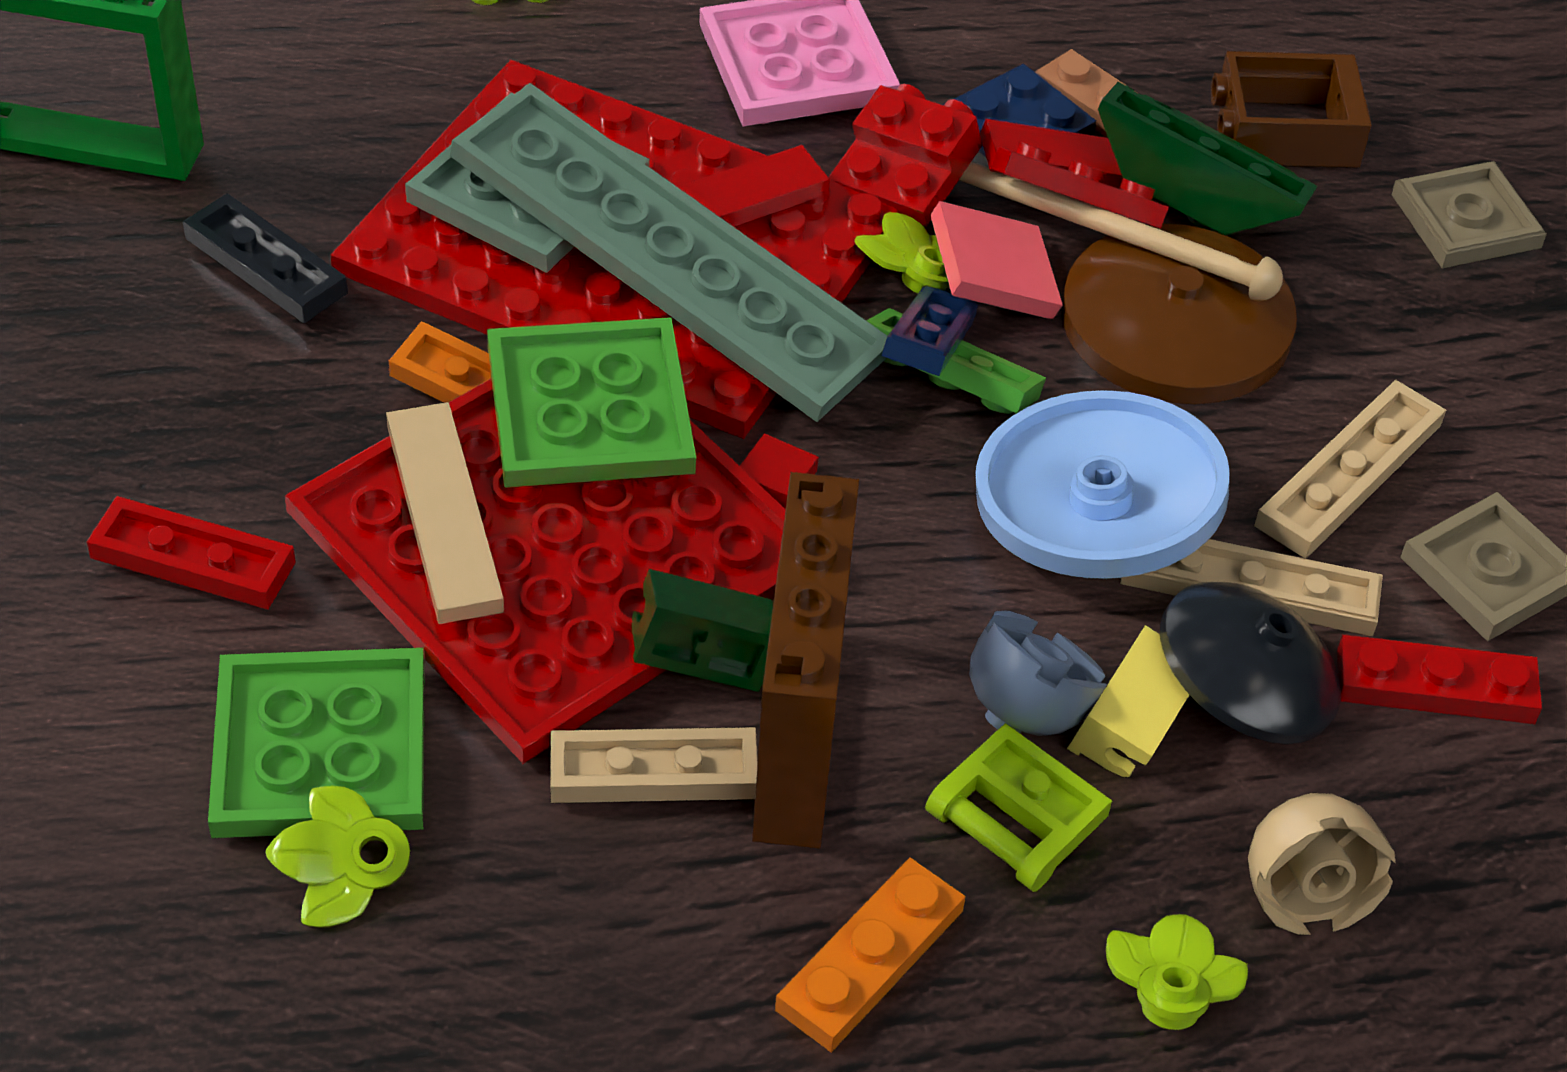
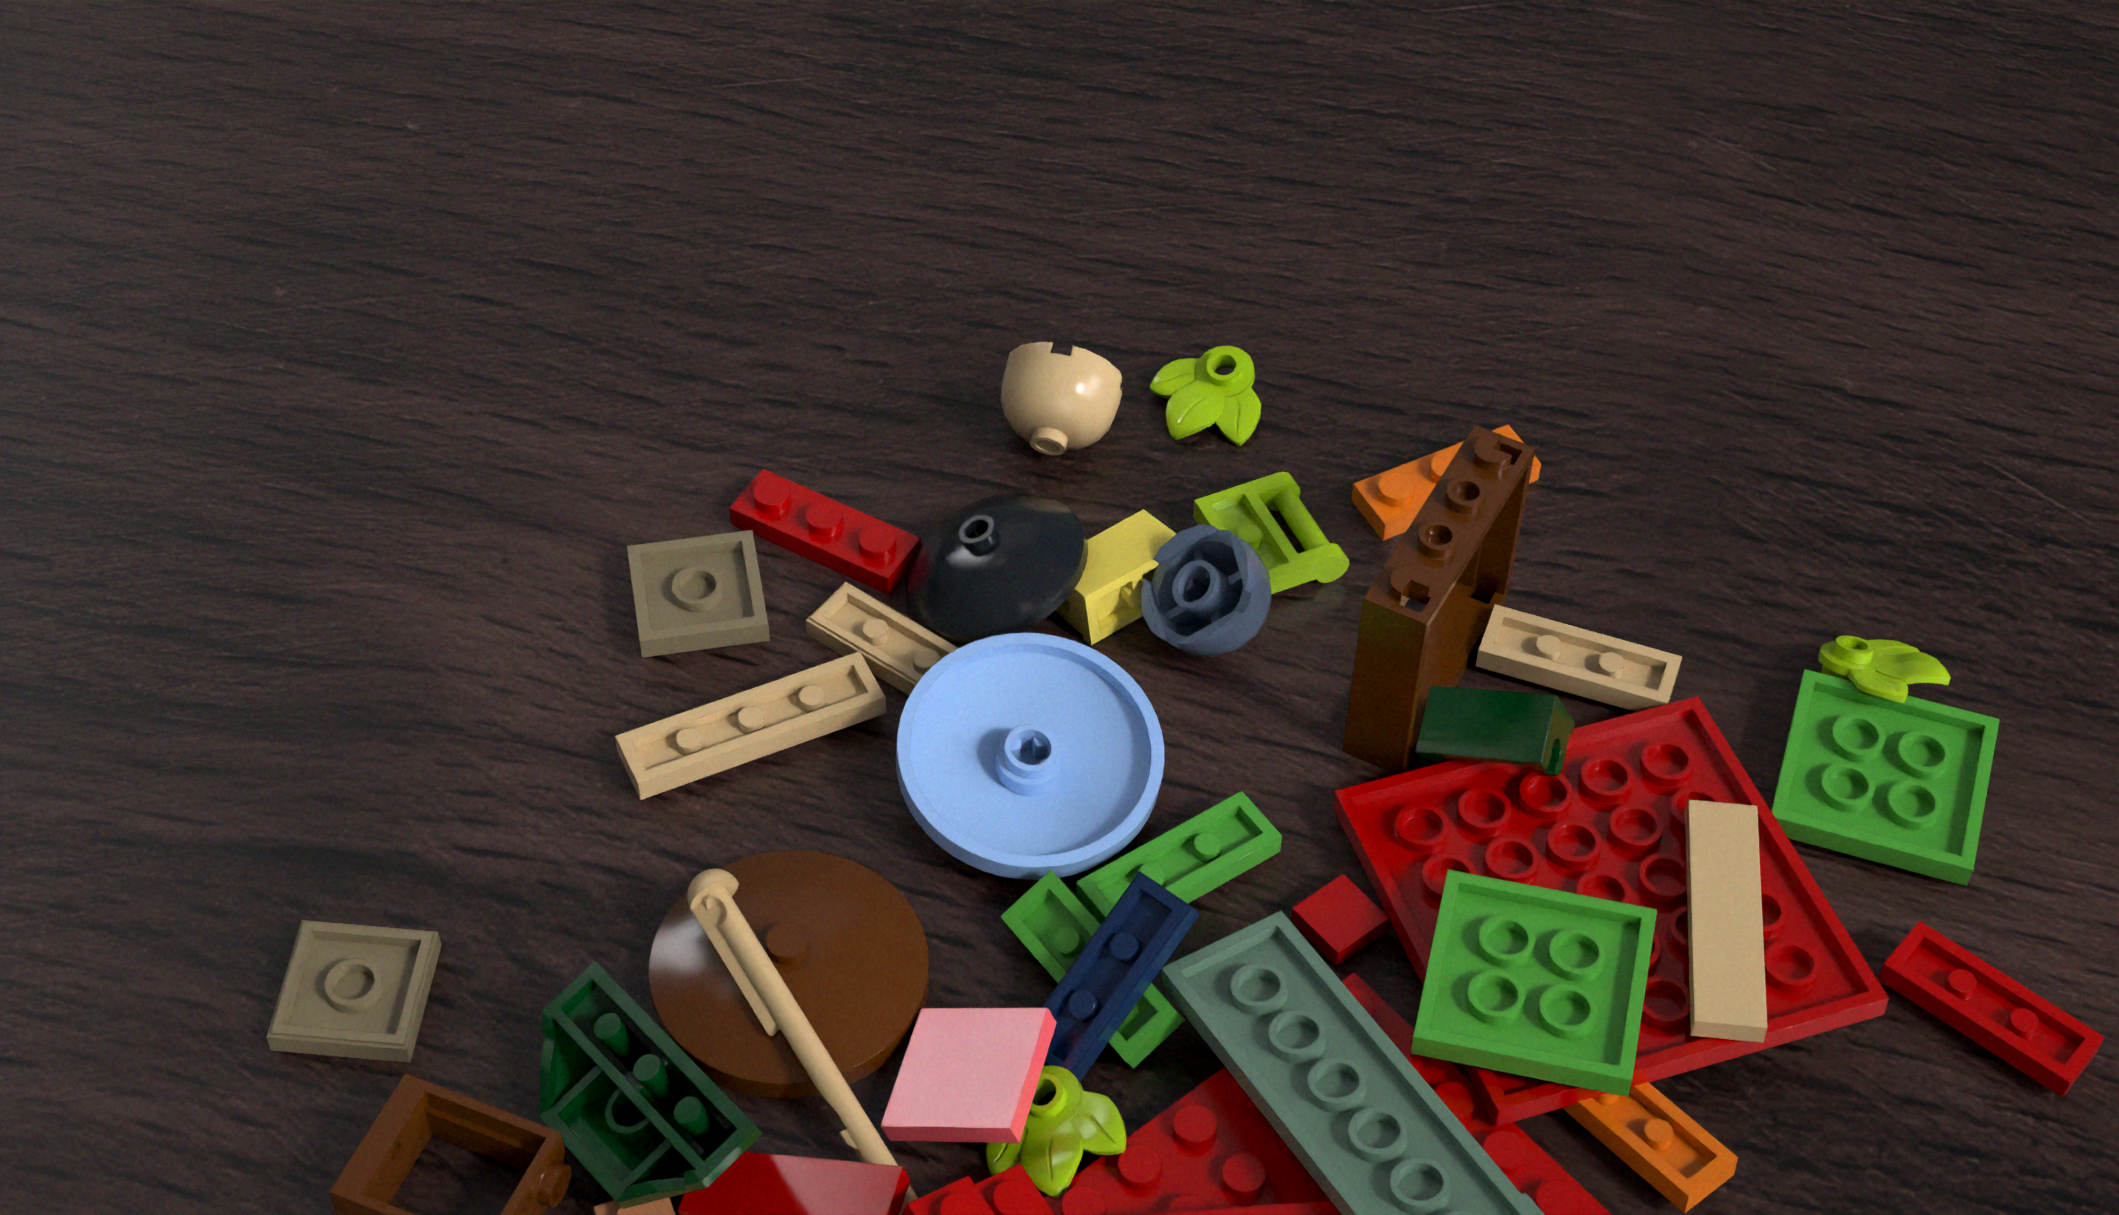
camera: 155 degrees left, 0 degrees up
(927, 462) = (1188, 857): none -> bright green plate
(1080, 183) = (828, 1104): red plate -> none

